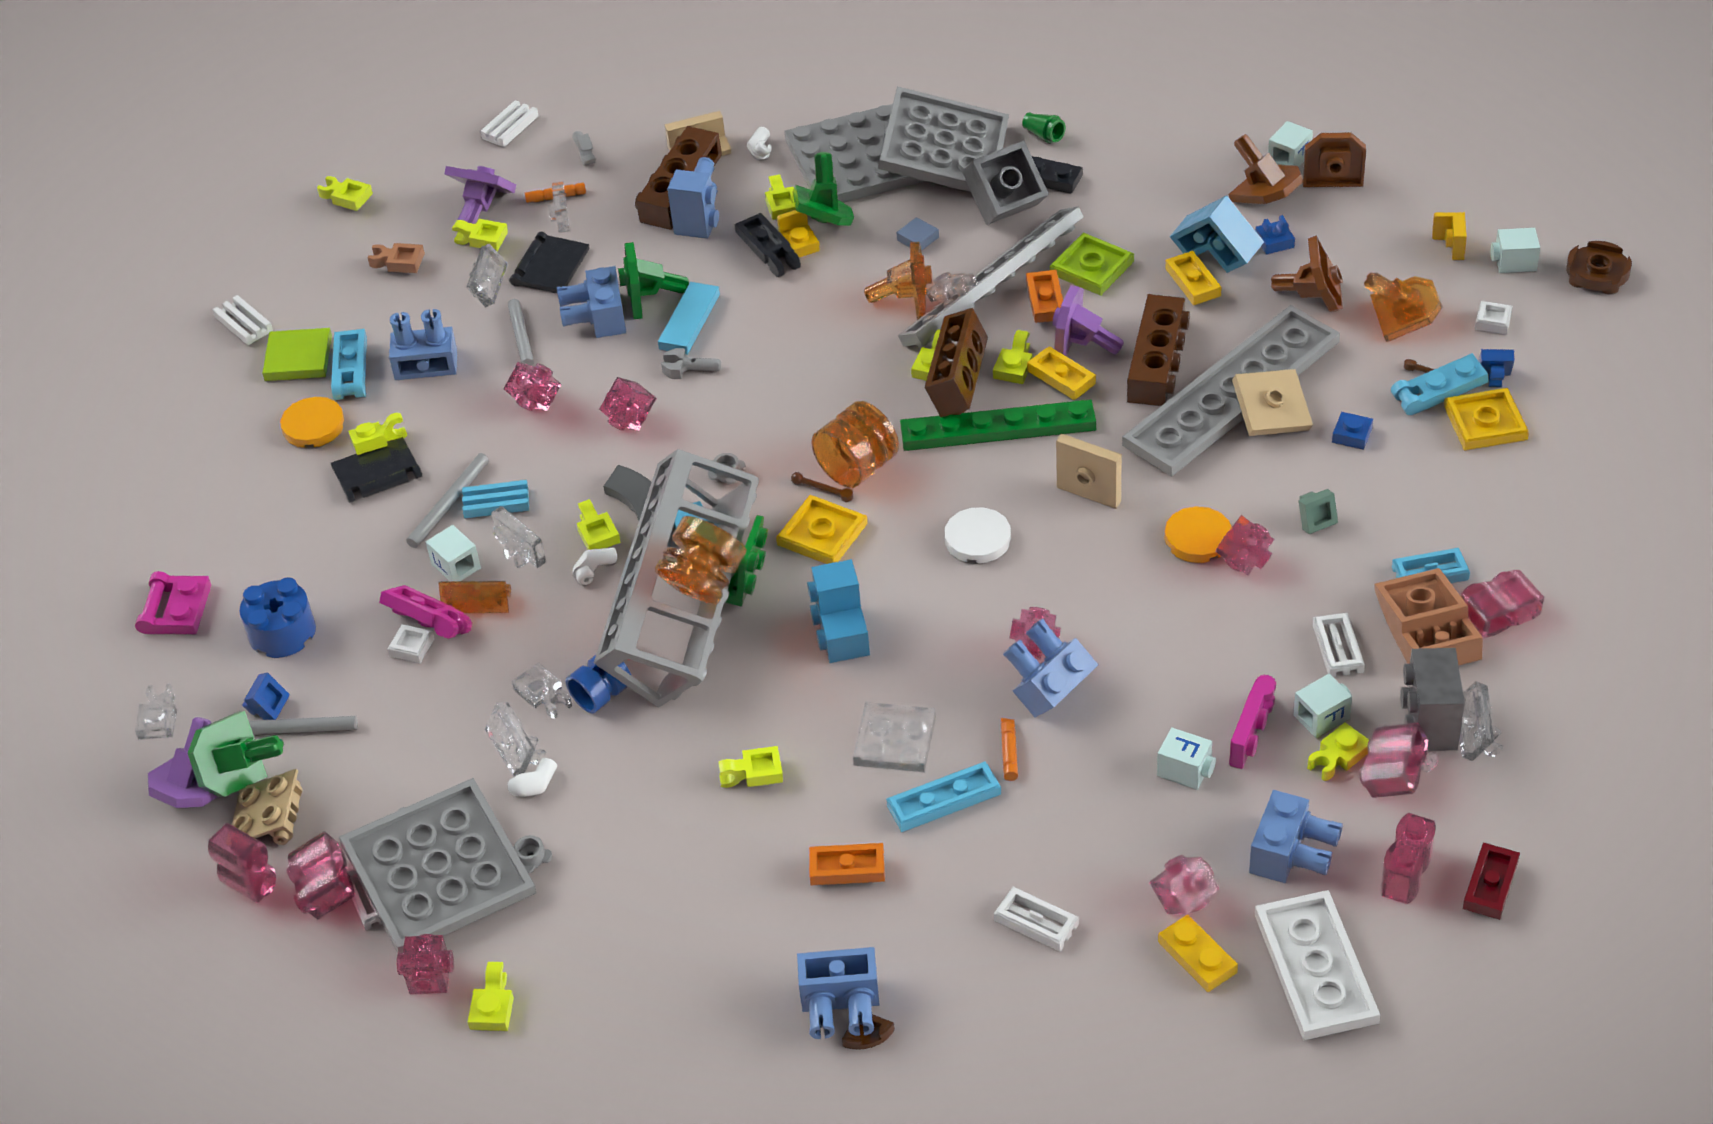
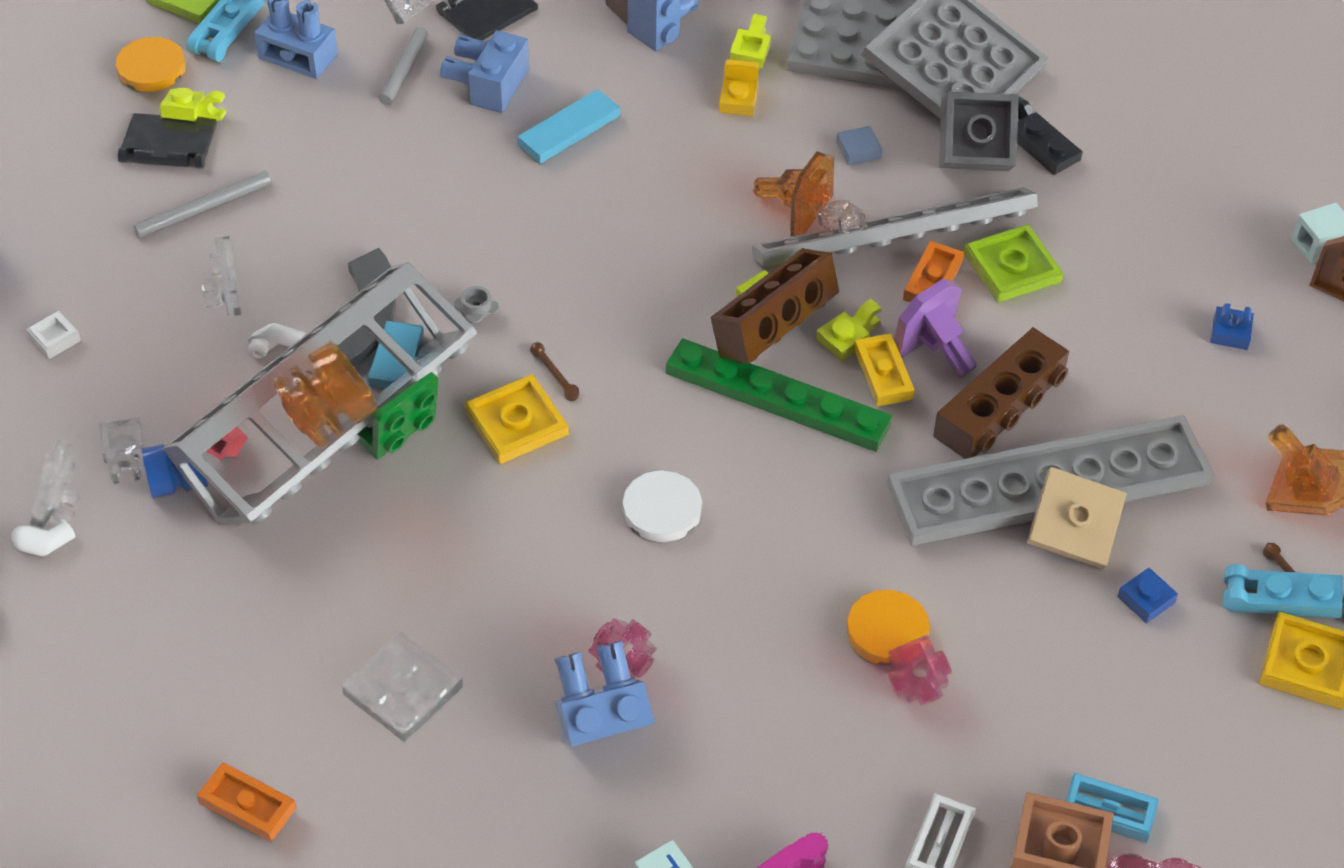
camera: 25 degrees right, 5 degrees up
(427, 610) = (87, 308): dark pink hinge -> none
(453, 554) = (156, 263): light aqua brick -> none
(476, 596) = (143, 317): clear orange hinge -> none
(485, 499) = (248, 221): medium azure tile -> none
(532, 386) = (360, 126): clear pink brick -> none
(595, 529) = (305, 306): neon yellow plate -> none
(627, 404) = (431, 188): clear pink brick -> none
(646, 278) = (548, 63): green piece -> none
(677, 362) = (526, 172): light grey bar -> none
(757, 766) = (248, 645): neon yellow plate -> none
(767, 243) = (702, 82): black hinge -> none
(822, 199) = (781, 63): green piece -> none
(838, 611) = (451, 518): dark azure brick -> none
(855, 444) = (598, 344): clear orange wheel -> none
(943, 796) = (402, 780): medium azure tile -> none
(1009, 749) = (507, 764): orange wheel -> none
(1045, 126) = (1078, 89): green cone -> none
(1088, 470) = (816, 495): tan plate -> none
(1193, 278) = (1104, 331): yellow plate -> none
(1221, 231) = (1166, 296): dark azure brick -> none
(1265, 178) = (1267, 257): dark orange piece -> none
(1314, 279) = (1234, 400): dark orange piece -> none
(1317, 510) = (1031, 670): sand green tile -> none

